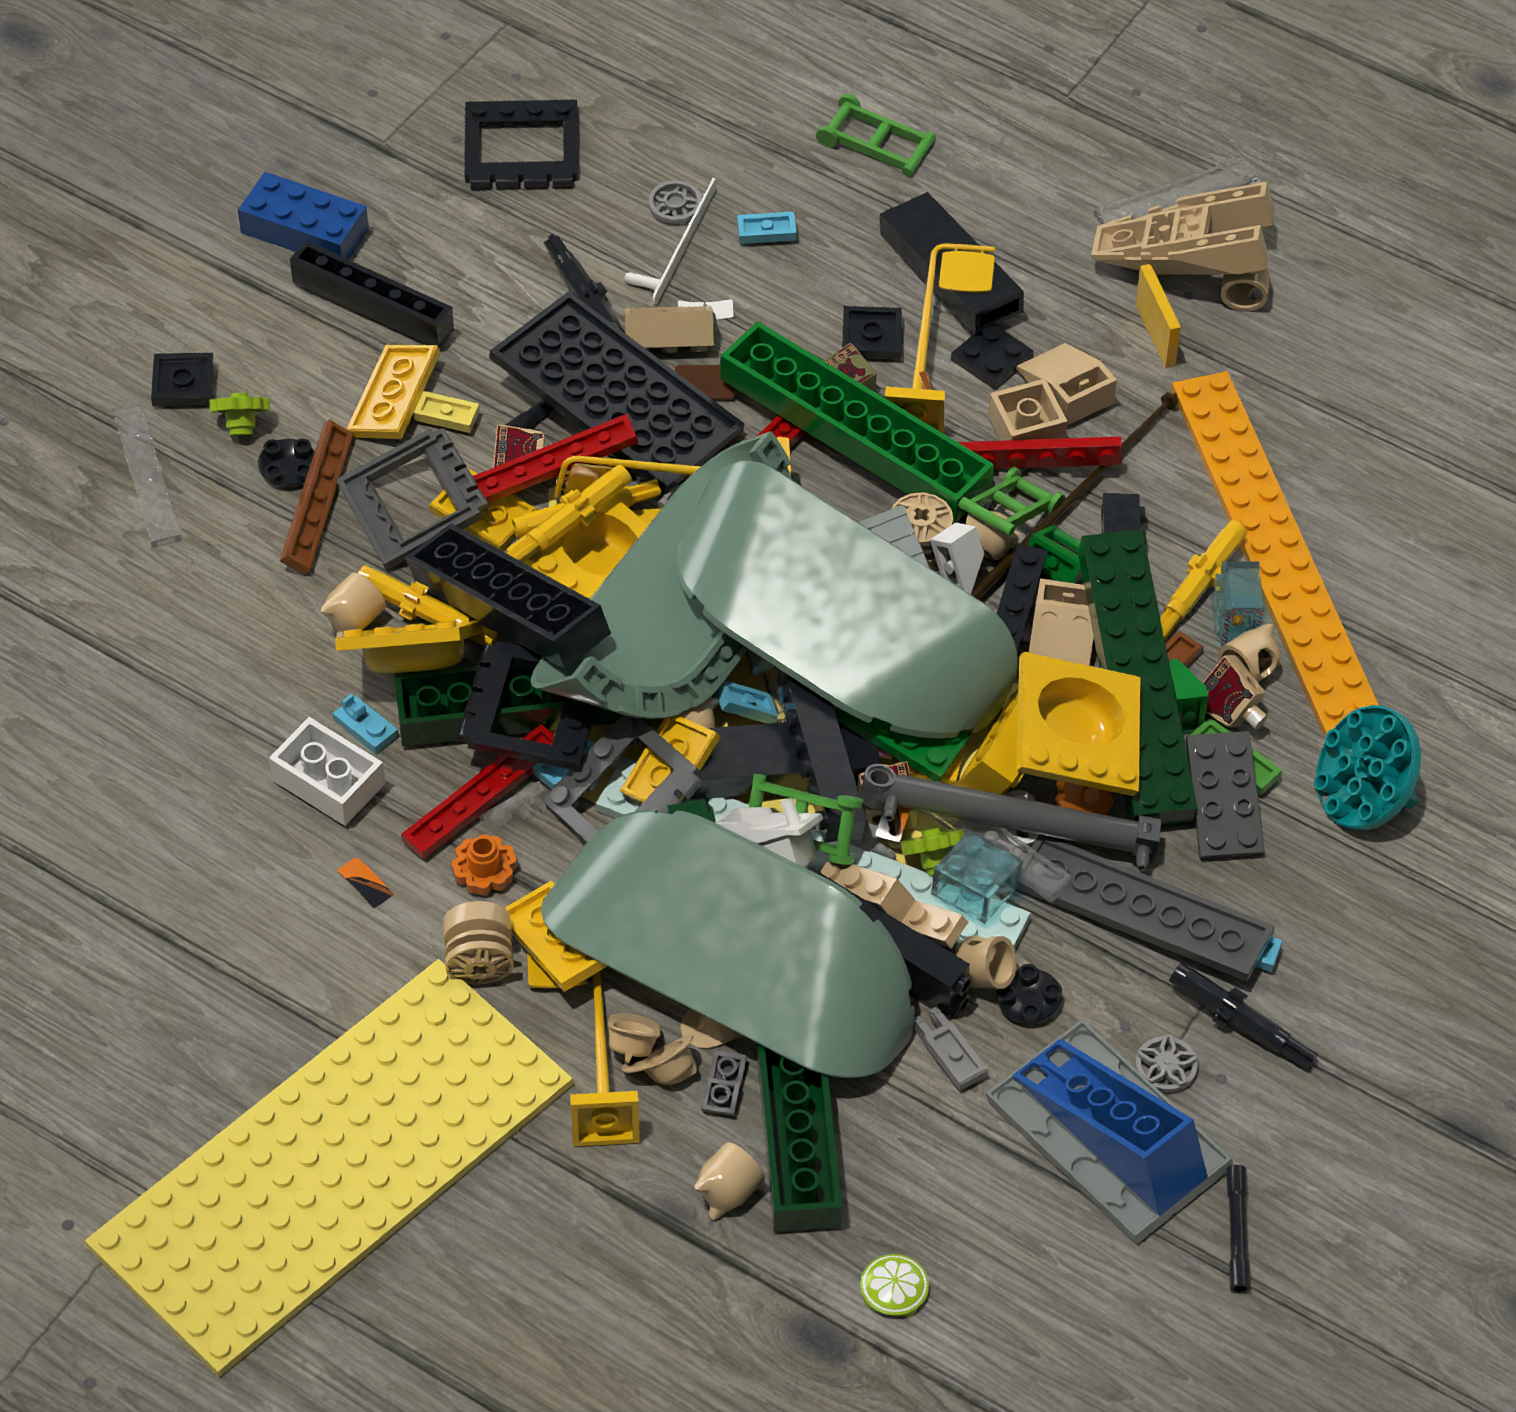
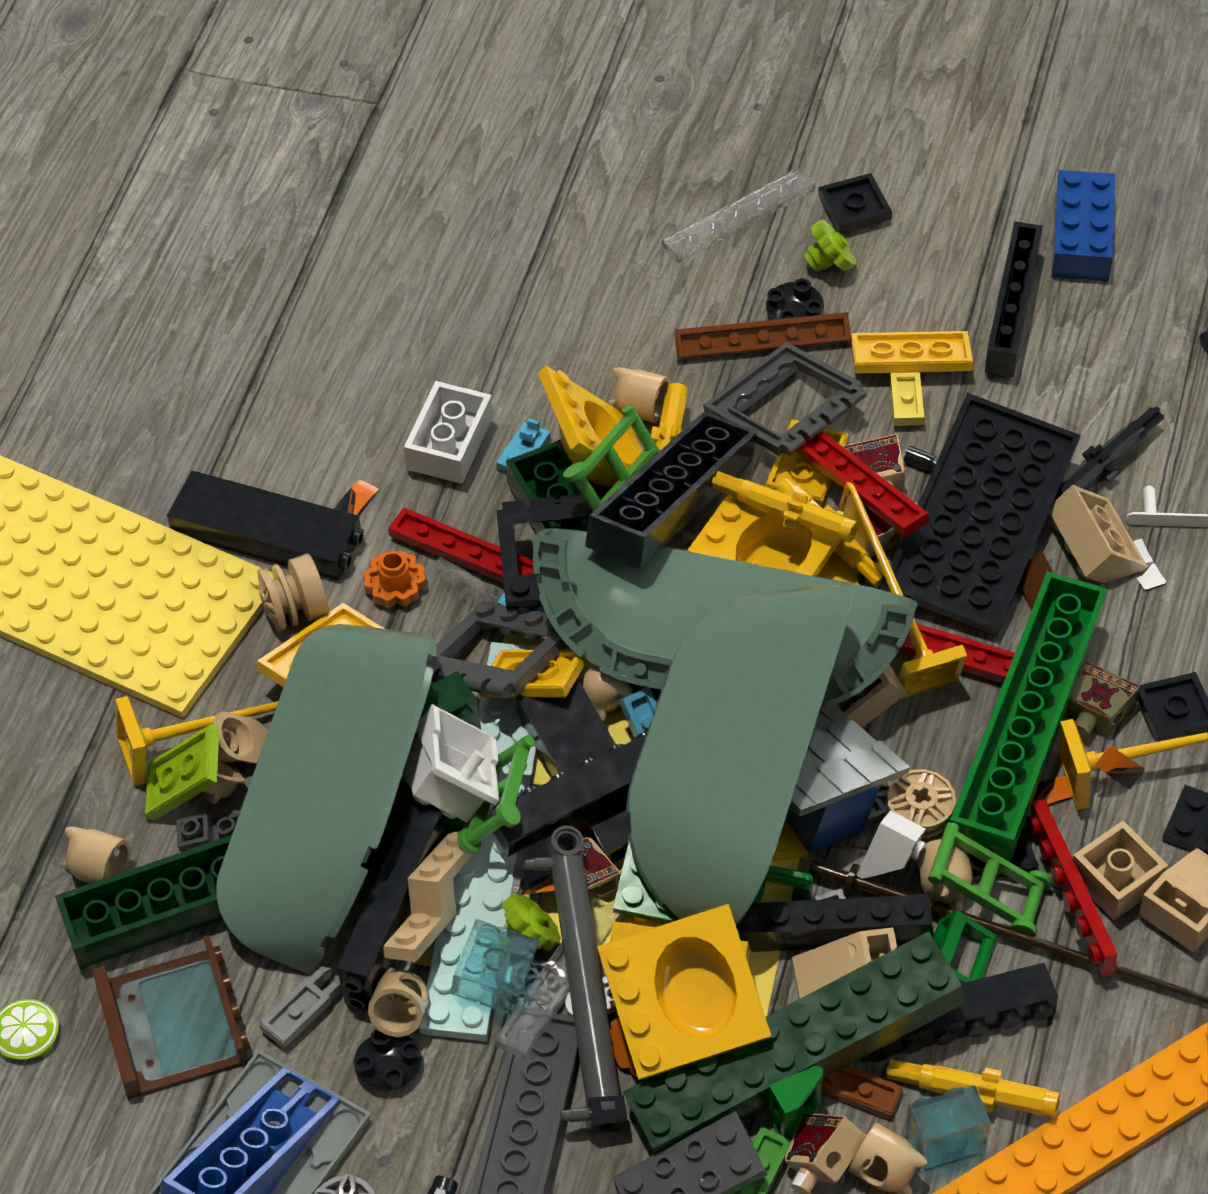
camera: 75 degrees right, 0 degrees up
(367, 957) = (265, 524): none -> black brick
(489, 637) = (579, 471): none -> bright green piece
(666, 1077) = (182, 772): none -> lime tile
(925, 1157) = (172, 1021): none -> clear light blue panel

